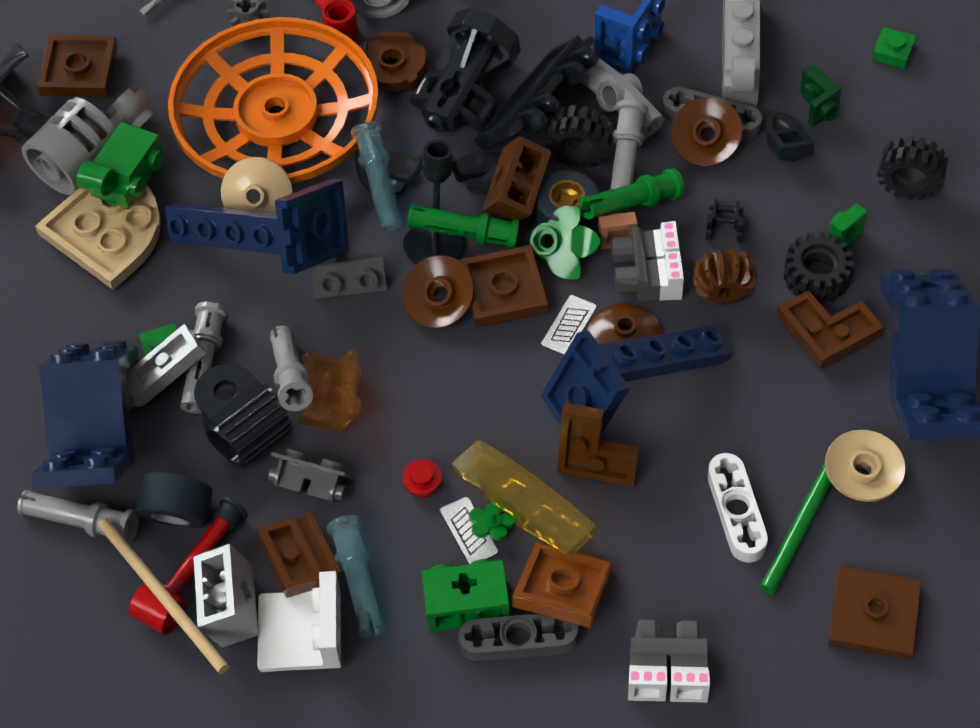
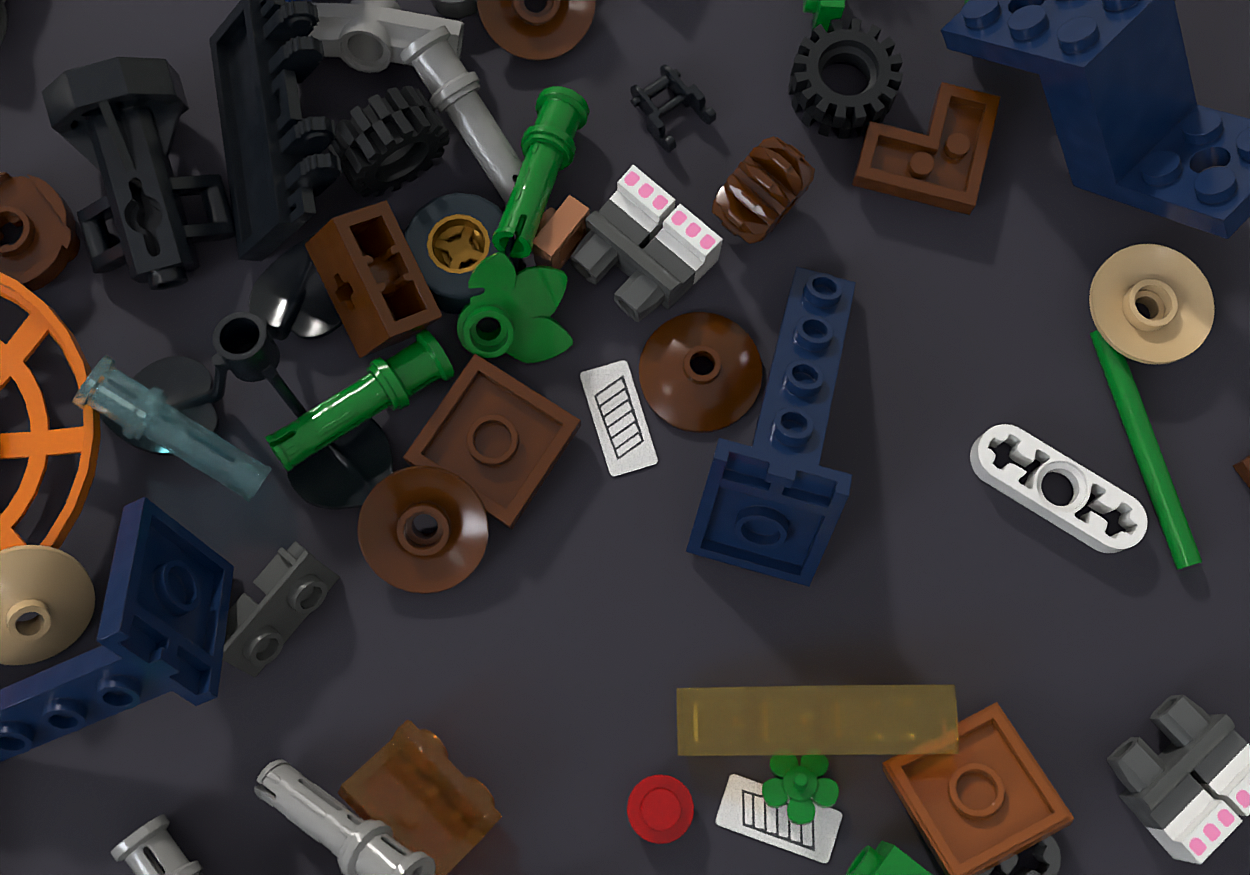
camera: 50 degrees left, 20 degrees up
(588, 456) = (836, 578): reddish brown plate -> none

